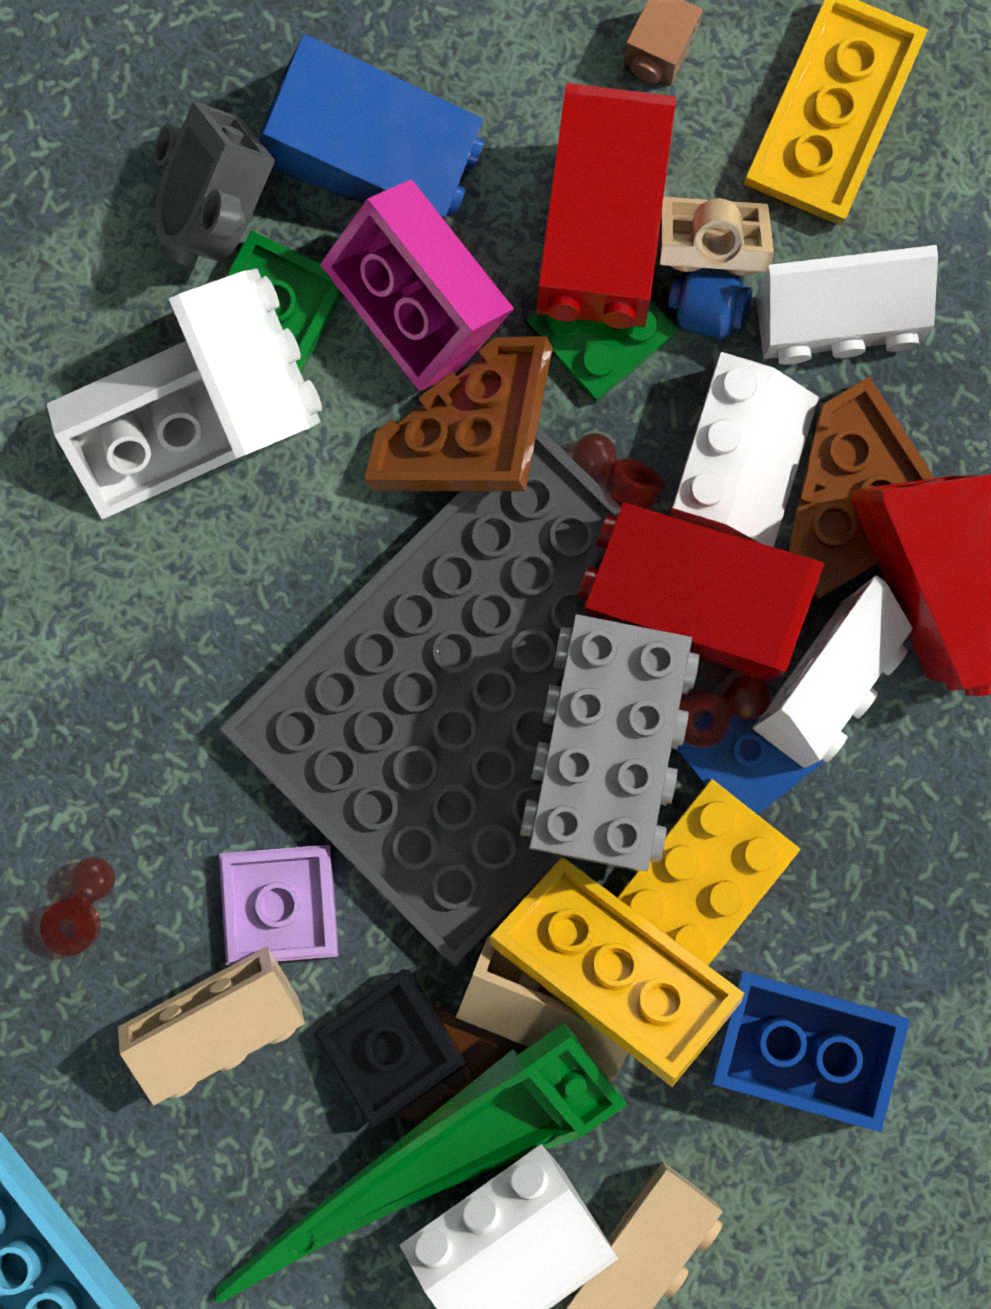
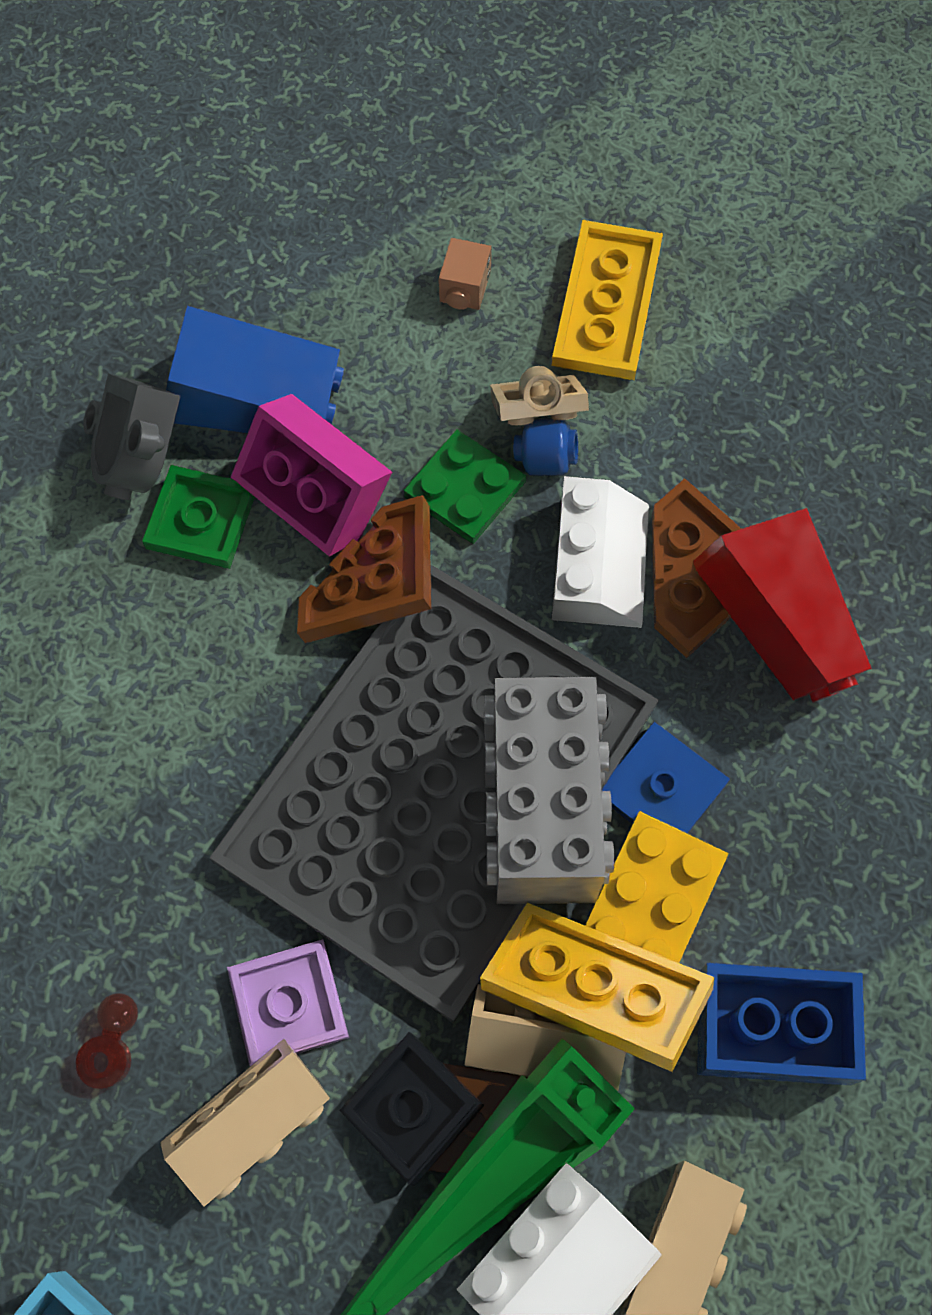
camera: 15 degrees left, 15 degrees down
(140, 430) = (110, 629): white slope -> none
(247, 360) = (184, 553): white slope -> none
(606, 205) = (449, 389): red slope -> none
(626, 478) = (513, 593): clear red plate -> none
(693, 581) = (625, 644): red slope -> none
(746, 698) = (650, 738): clear red plate -> none
(837, 675) = (721, 705): white slope -> none
(847, 304) = (653, 424): white slope -> none

